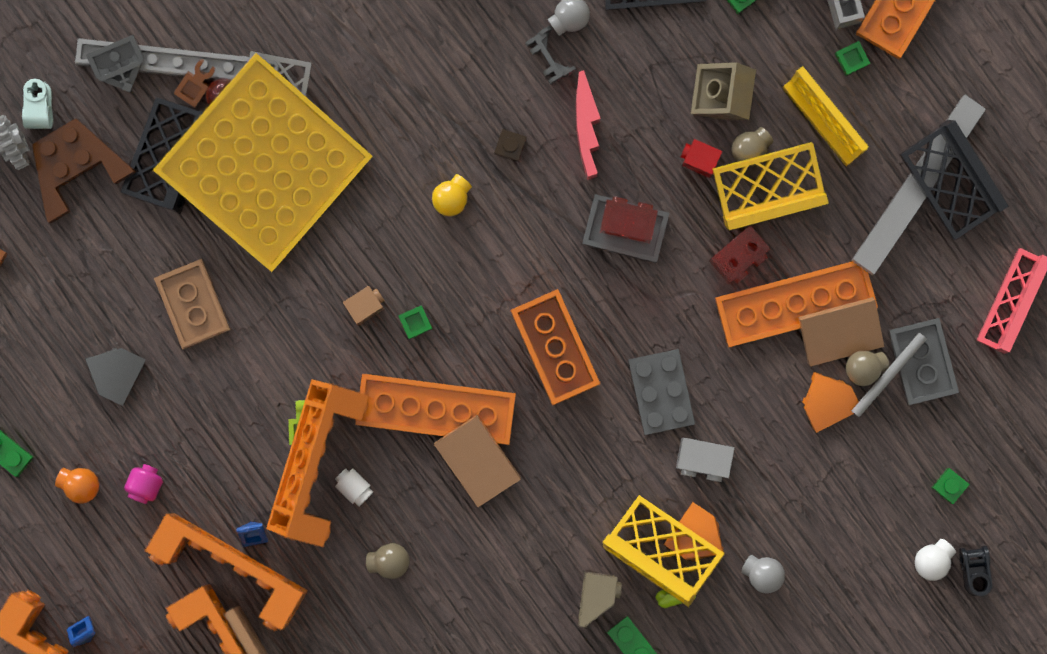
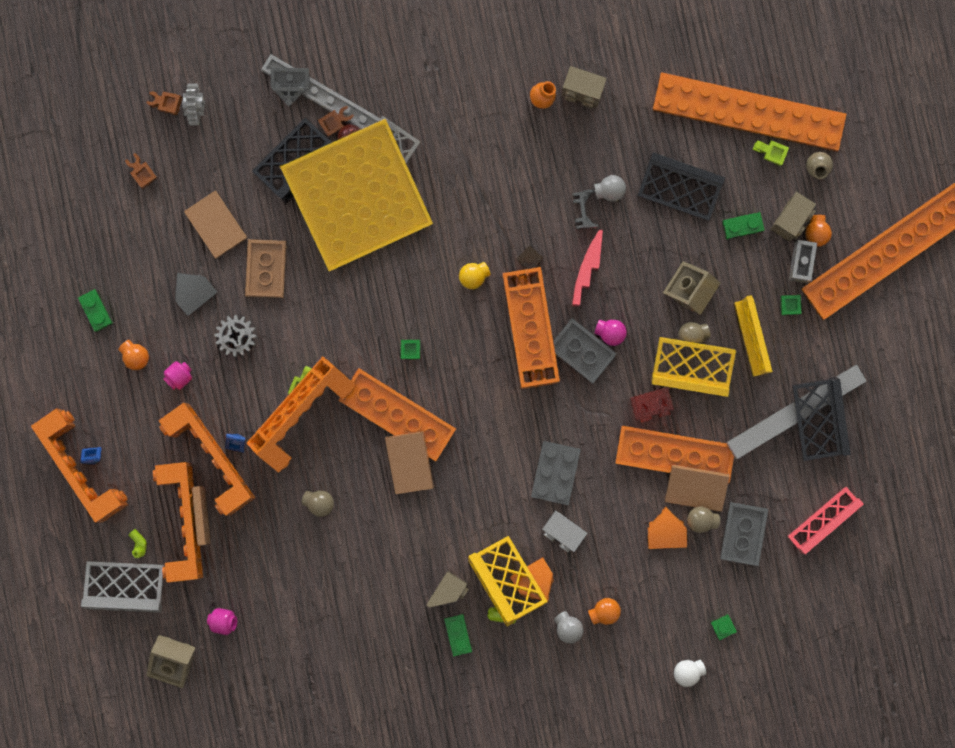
camera: 30 degrees right, 0 degrees up
(37, 109) = (221, 90): light aqua piece -> none
(68, 155) = (227, 130): reddish brown wing -> none
(105, 278) = (215, 224): none -> medium nougat tile
(201, 394) = (226, 339): none -> light grey gear
(353, 486) = (318, 441): white brick -> none
(364, 304) = (381, 322): medium nougat brick -> none
(551, 228) = (531, 328): none -> orange plate
(555, 347) = (497, 409): orange brick -> none
(628, 220) = (586, 346): clear red brick -> none
(650, 189) = (611, 332): none -> dark pink piece
(700, 157) = (655, 325): red brick -> none
(799, 533) = (606, 612): none -> orange piece
(889, 374) = (715, 532): light grey bar -> none
(976, 568) = (715, 691): black piece -> none

